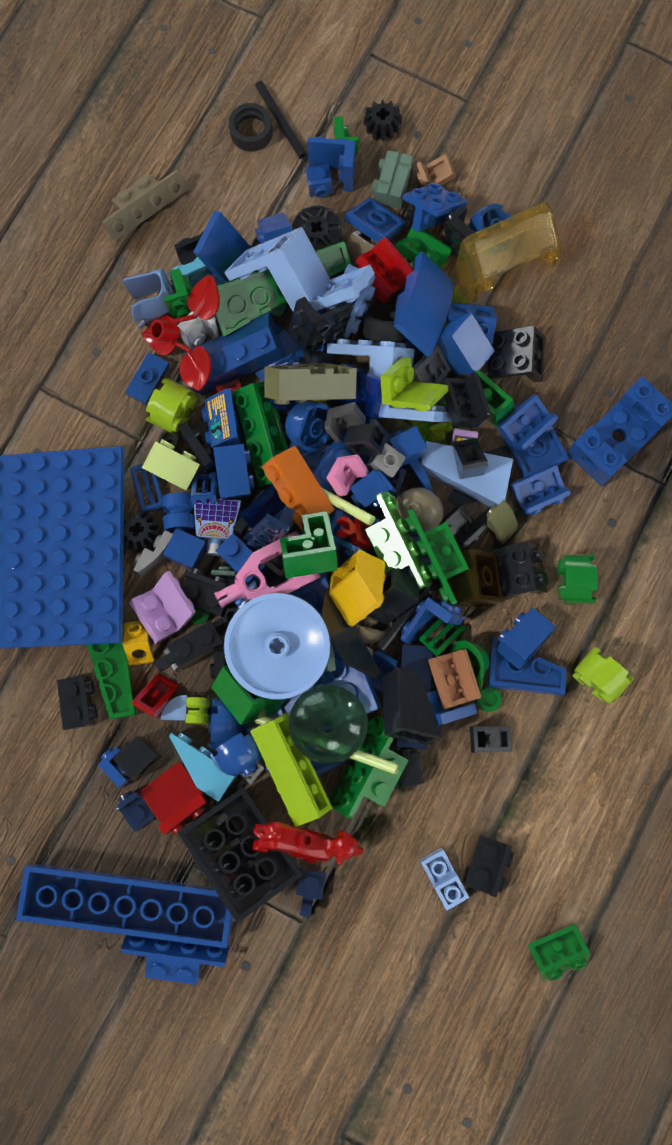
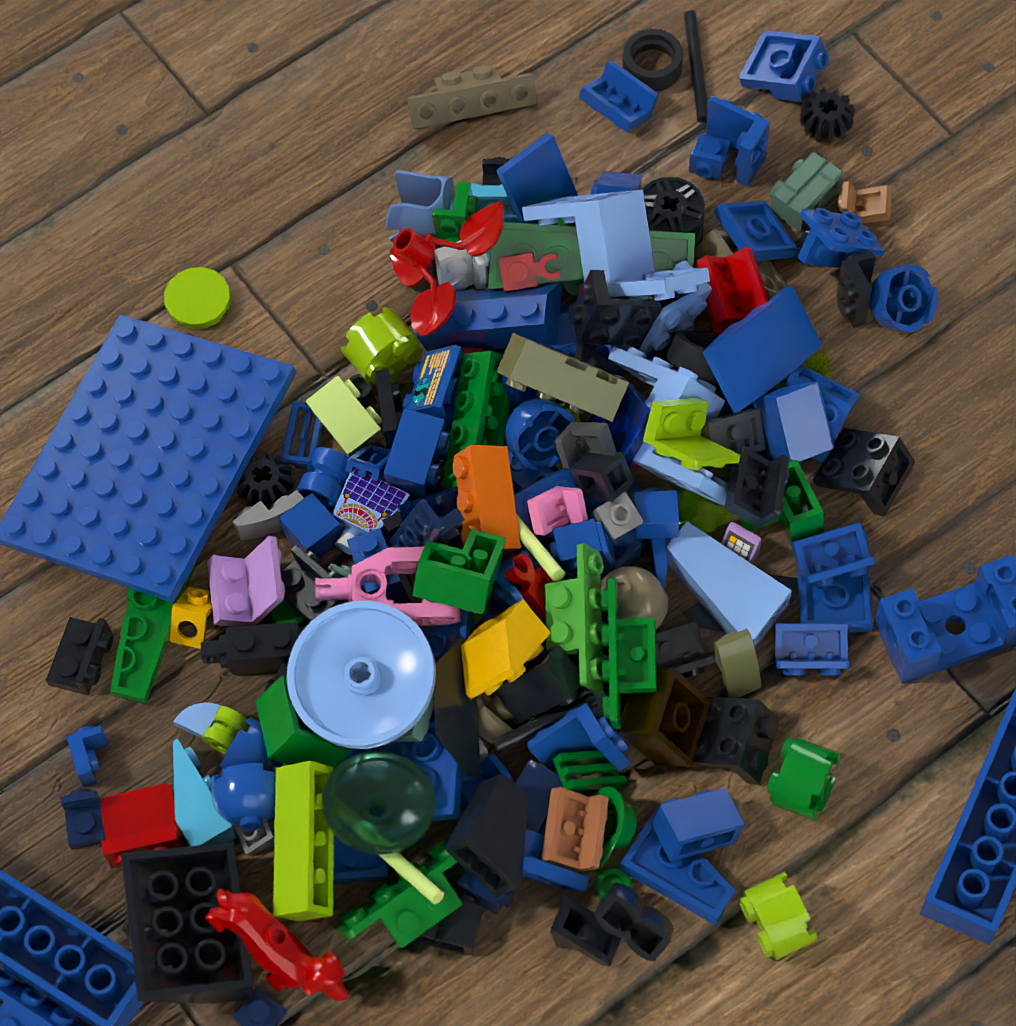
camera: 25 degrees right, 15 degrees down
(29, 422) = (197, 298): none -> lime tile
(137, 757) = (120, 753): black piece -> none
(147, 378) = (371, 299): blue plate -> none
(156, 695) = (181, 688): red slope -> none
(241, 315) = (521, 271): none -> red plate
(242, 162) = (620, 97): none -> blue bracket
(339, 94) = (785, 64): none -> blue plate
(341, 131) = (766, 108): green bracket -> none
(424, 242) = (810, 287): green bracket -> none
(469, 458) = (729, 564): black slope -> none
(507, 246) = (908, 321): clear yellow windscreen -> none
(517, 720) = (643, 927): none -> black brick

